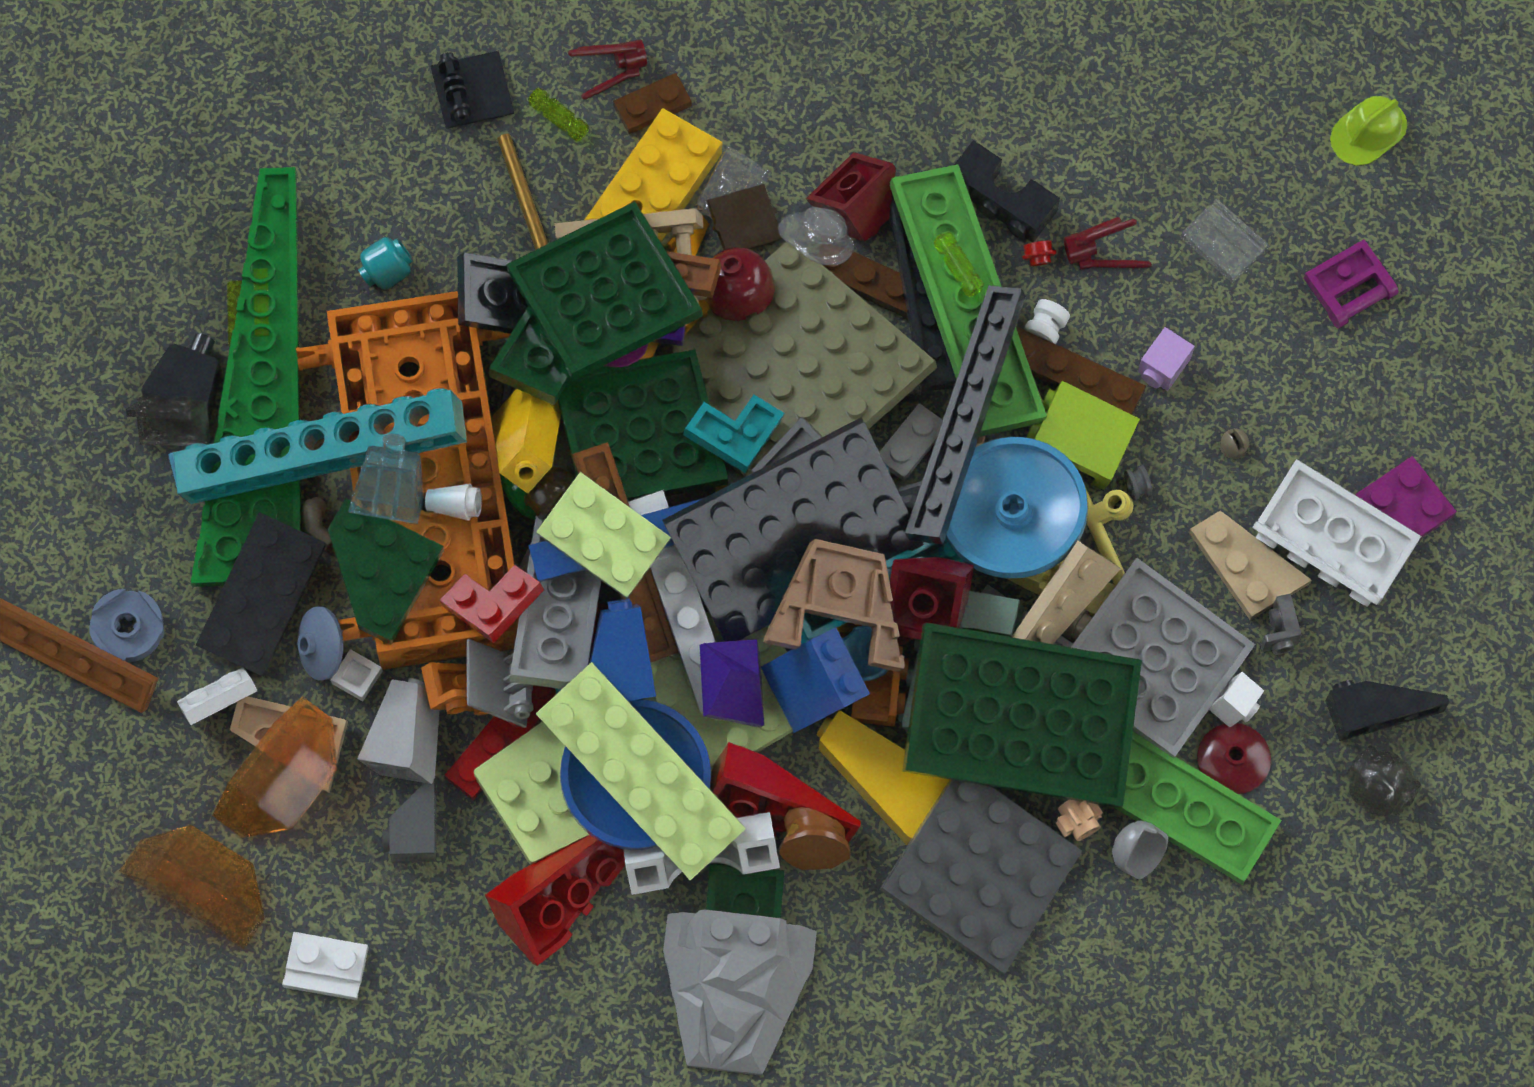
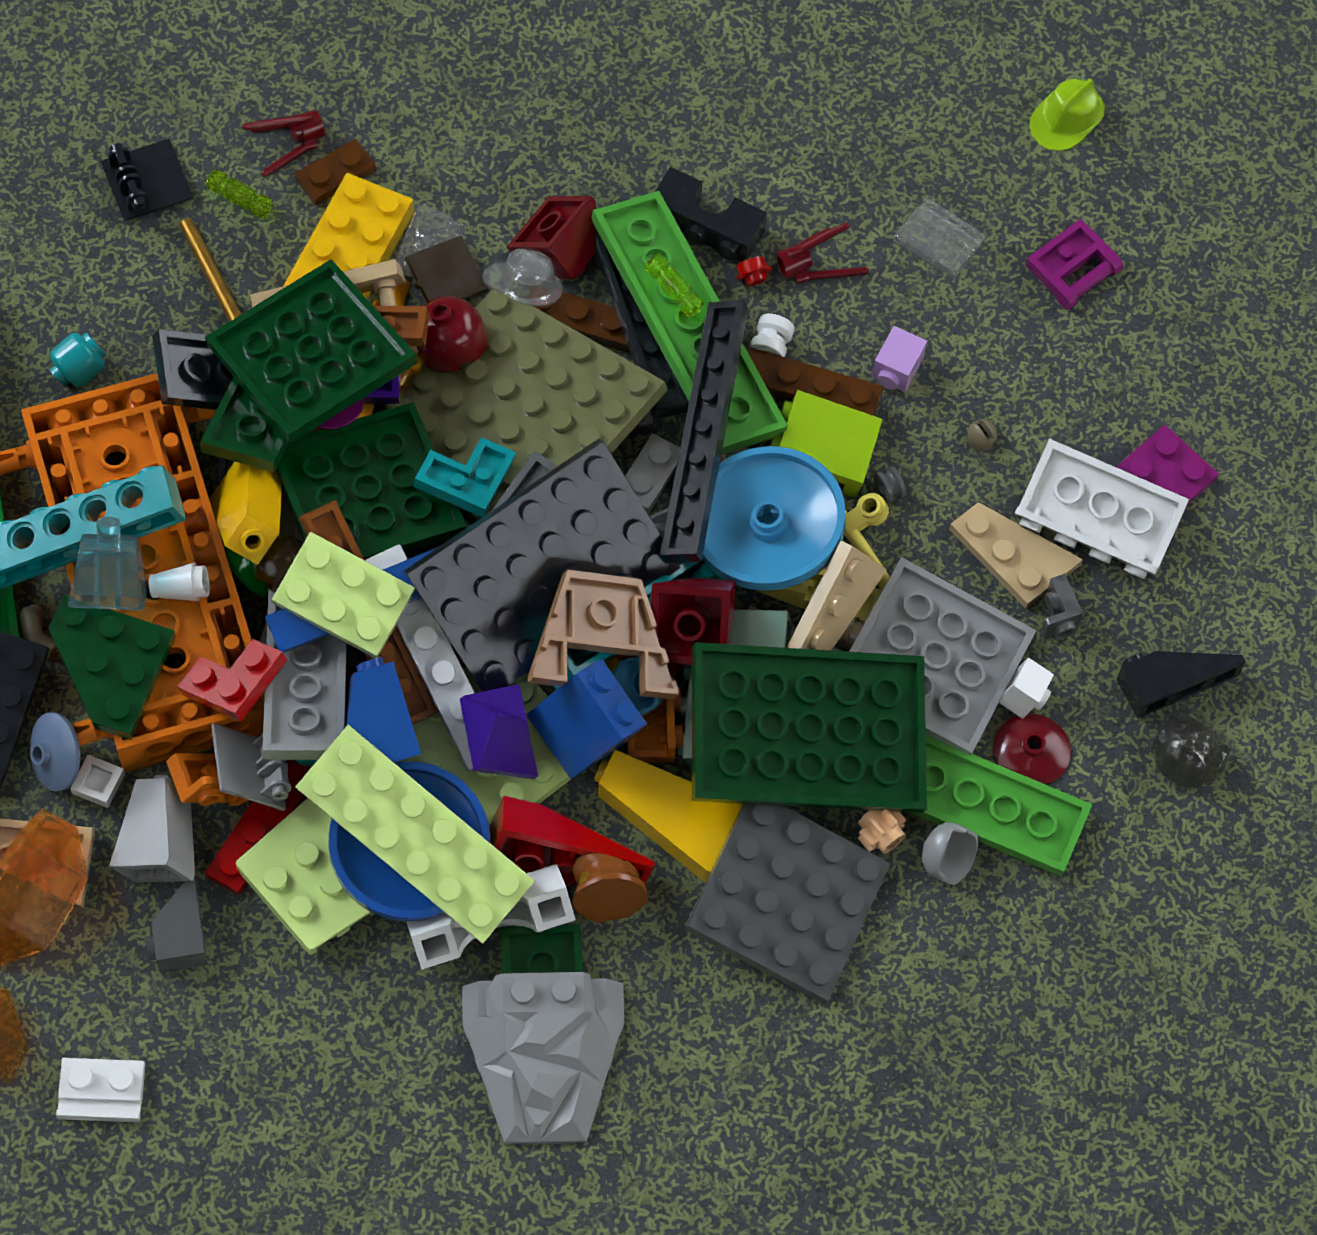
camera: 10 degrees left, 5 degrees down
(549, 895) = (332, 983): red wedge -> none

